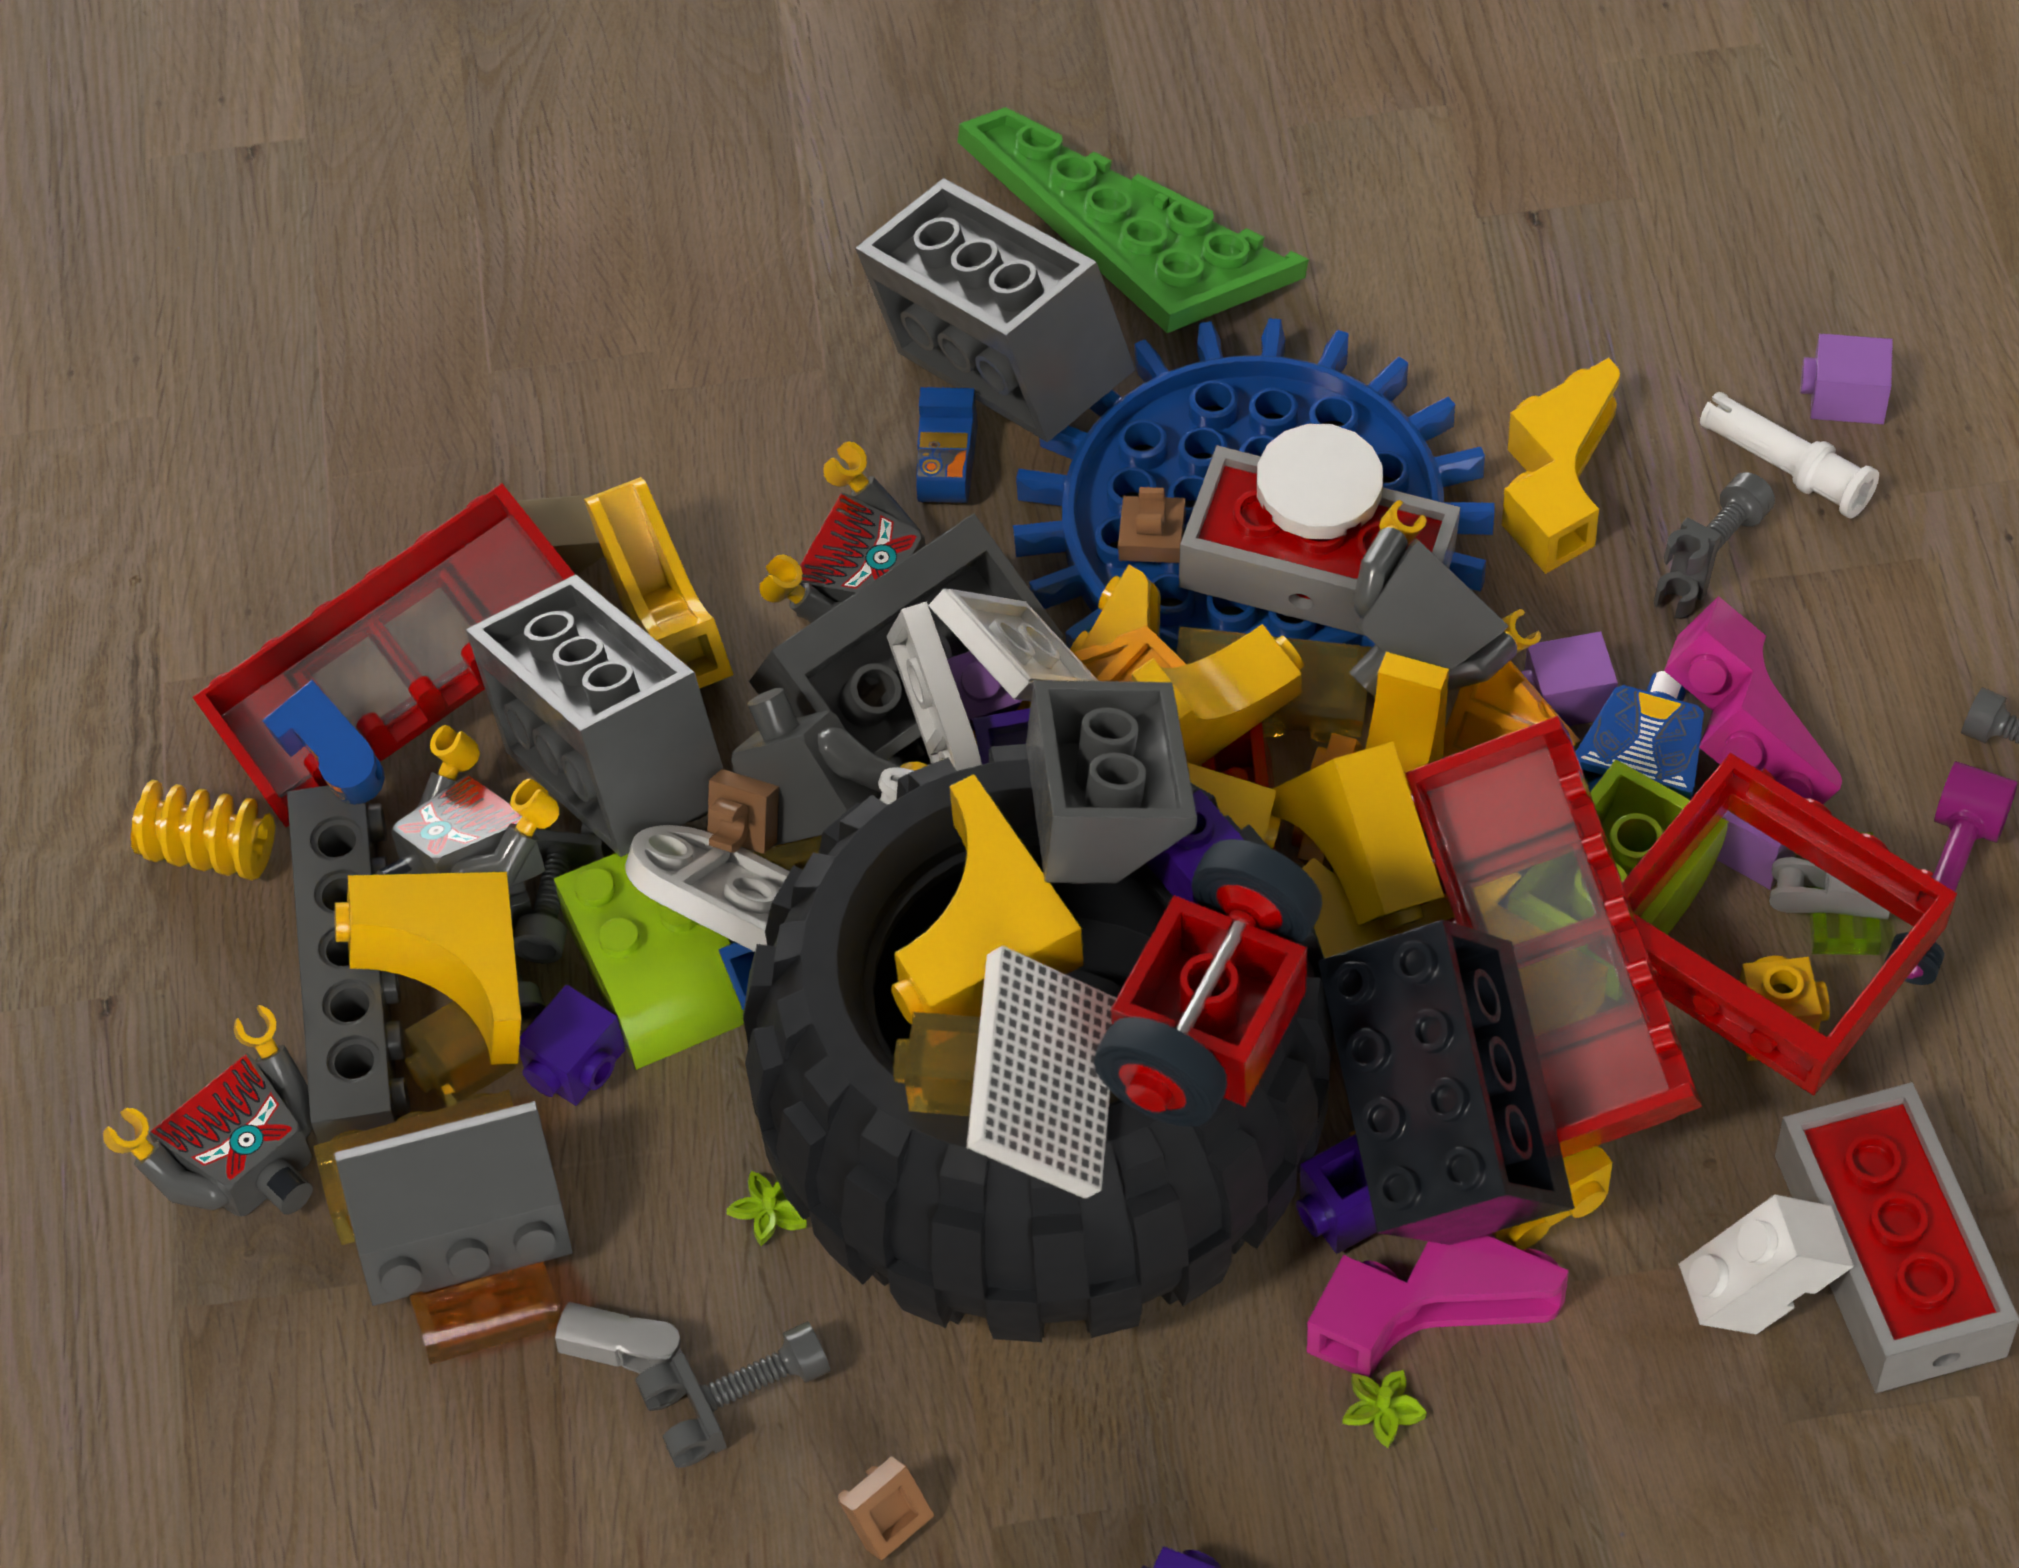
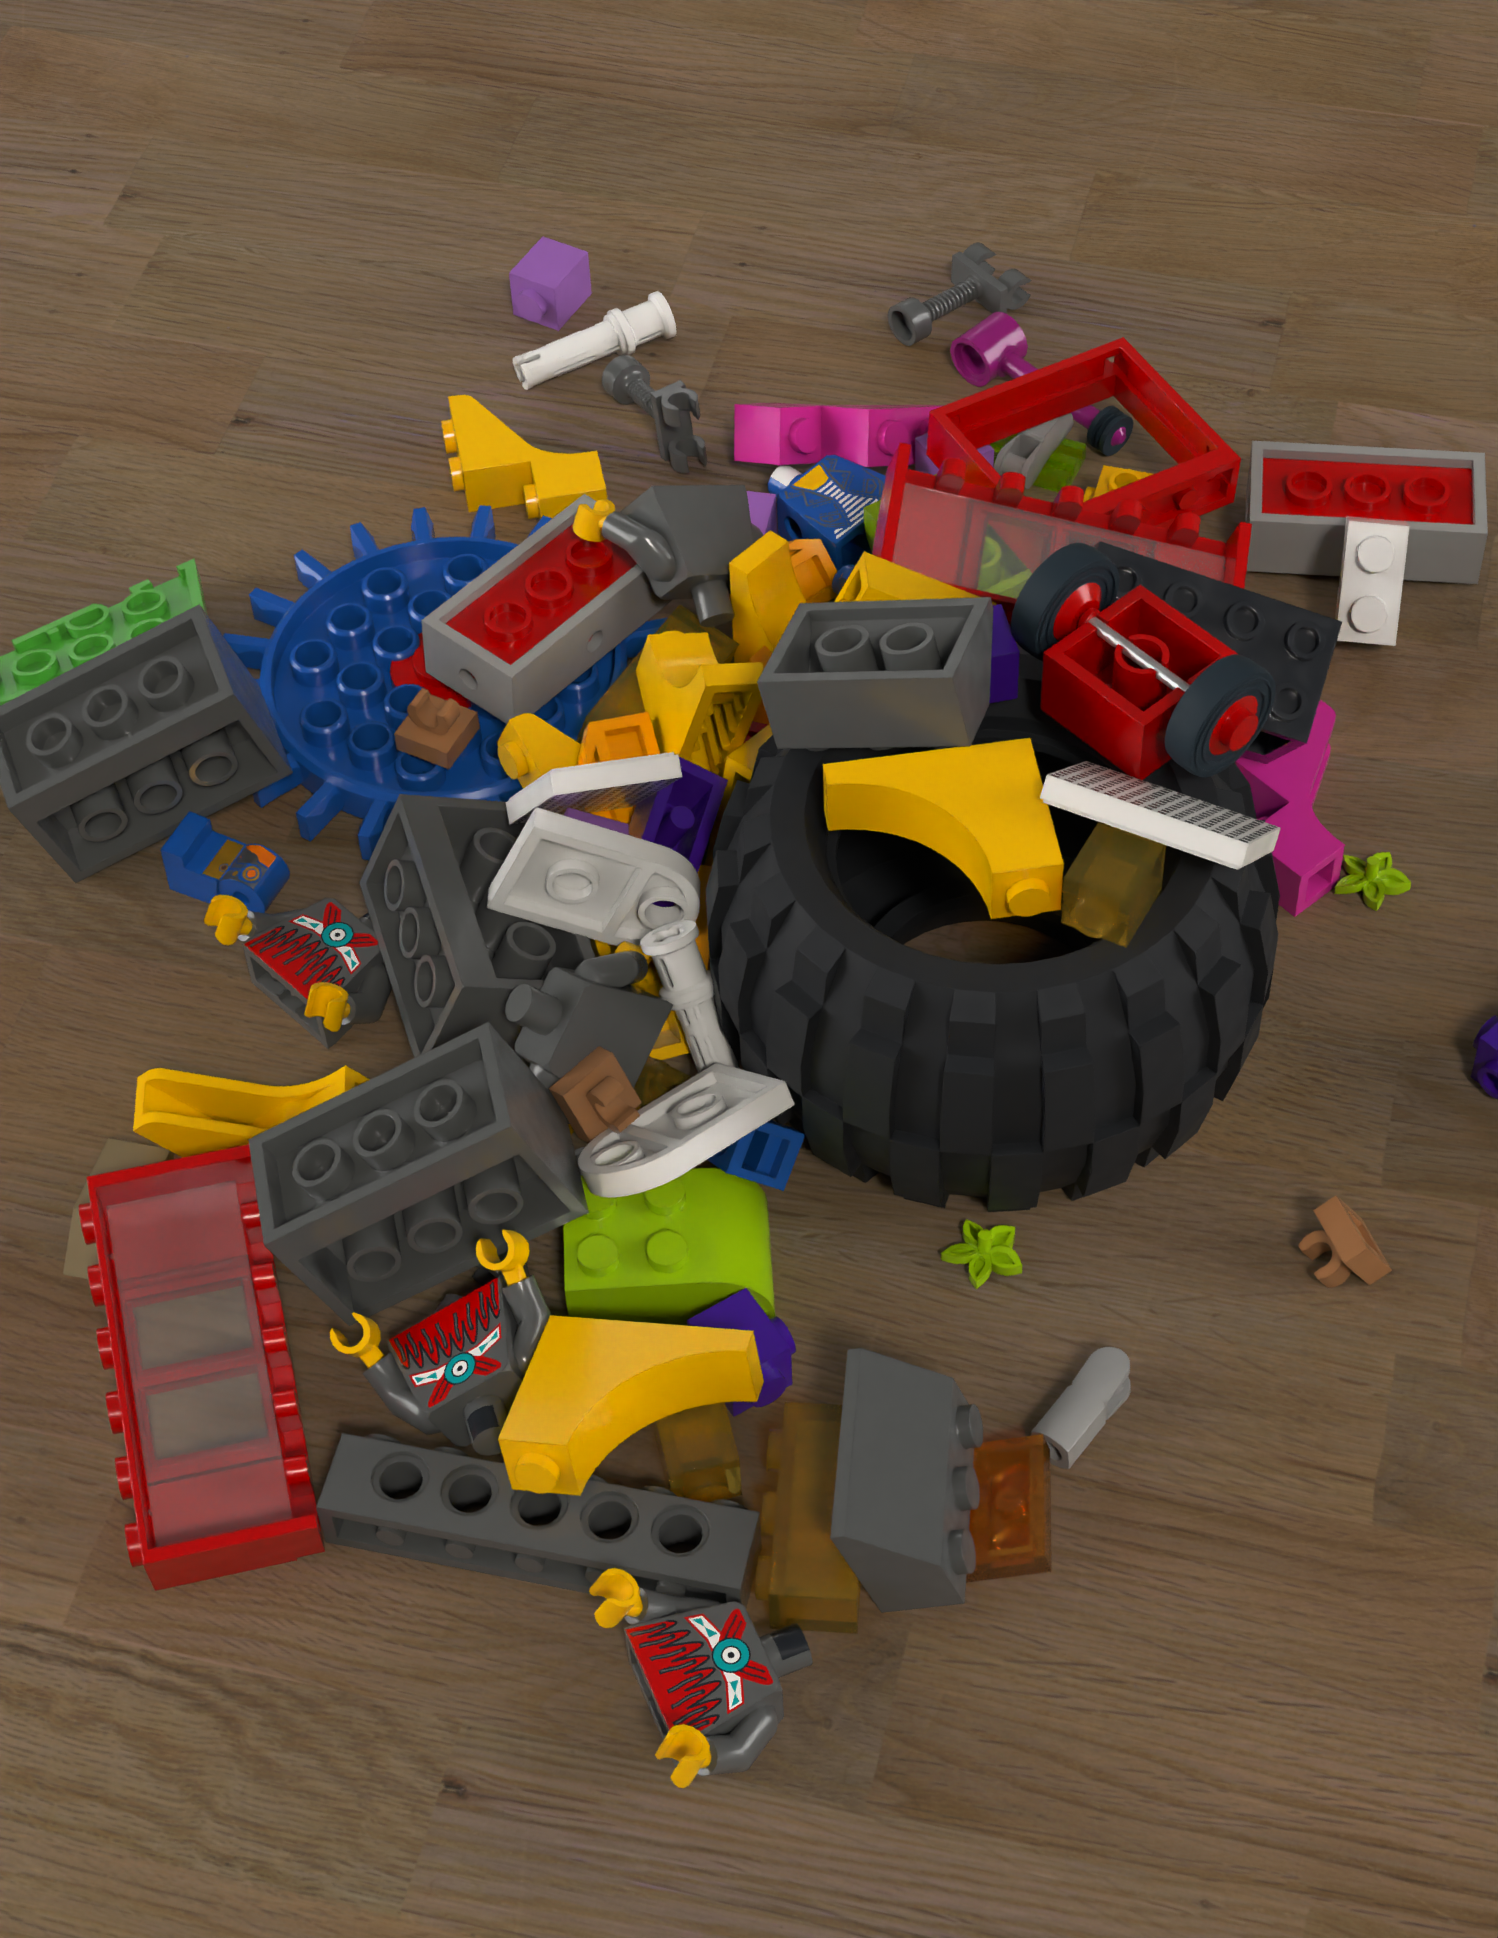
camera: 70 degrees left, 5 degrees down
(202, 834) = (296, 1614): yellow piece -> none
(343, 754) = (303, 1426): blue leg -> none
(697, 1438) = (1162, 1263): dark grey bar -> none
(1319, 480) = (509, 561): white tile -> none

